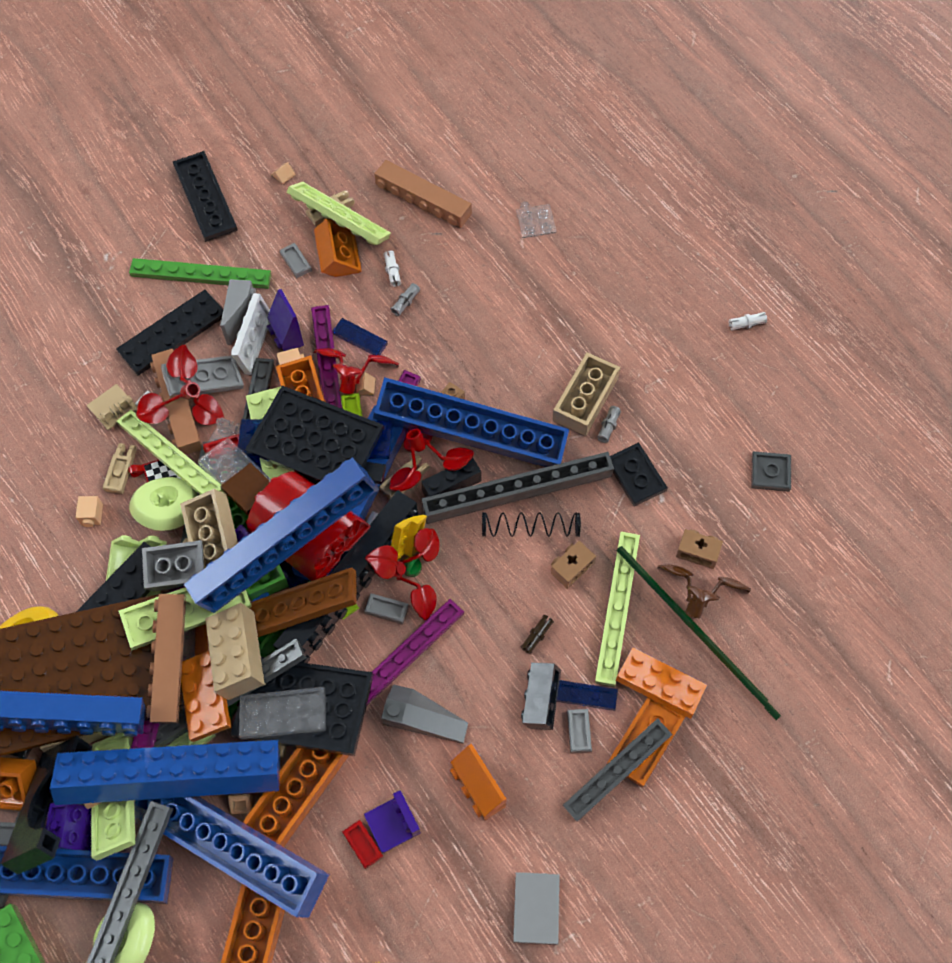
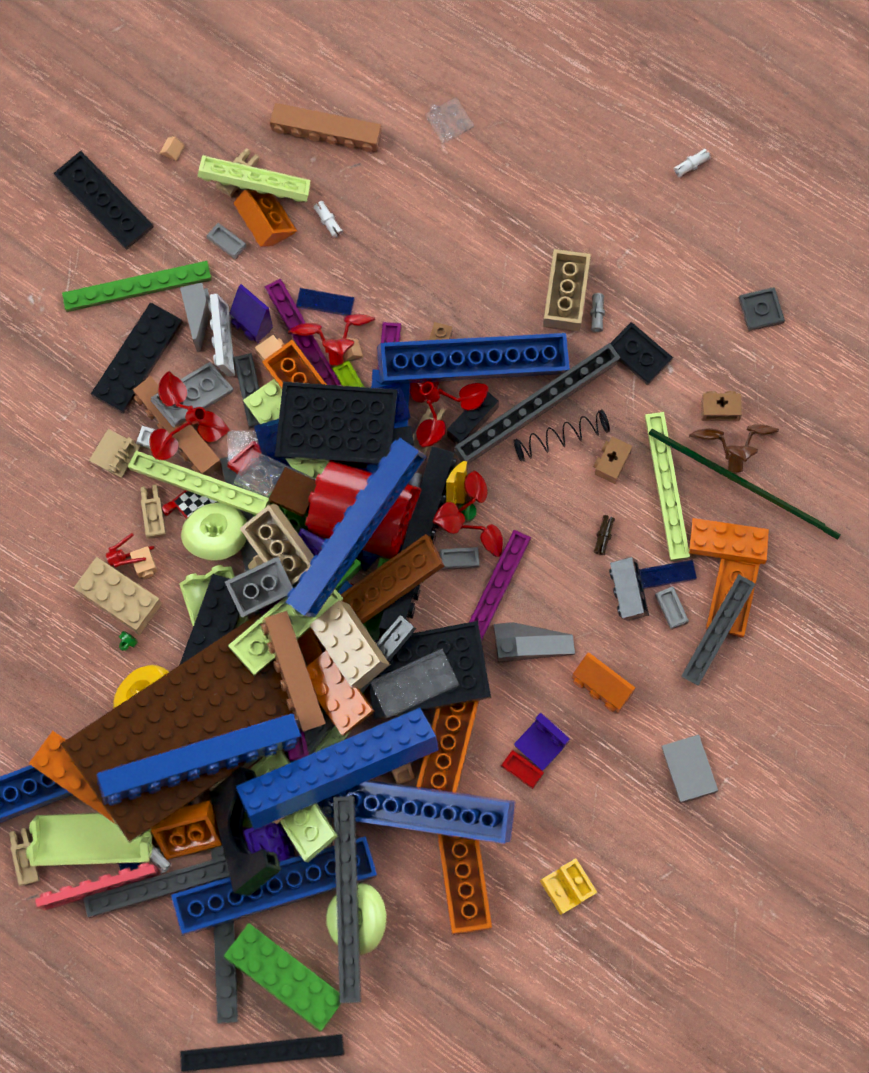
camera: 20 degrees left, 10 degrees up
(40, 577) = (128, 639): none -> green tile
(50, 533) = (118, 595): none -> tan brick
(66, 497) = (117, 557): none -> red plant
(405, 299) = (354, 247): light grey pin -> none

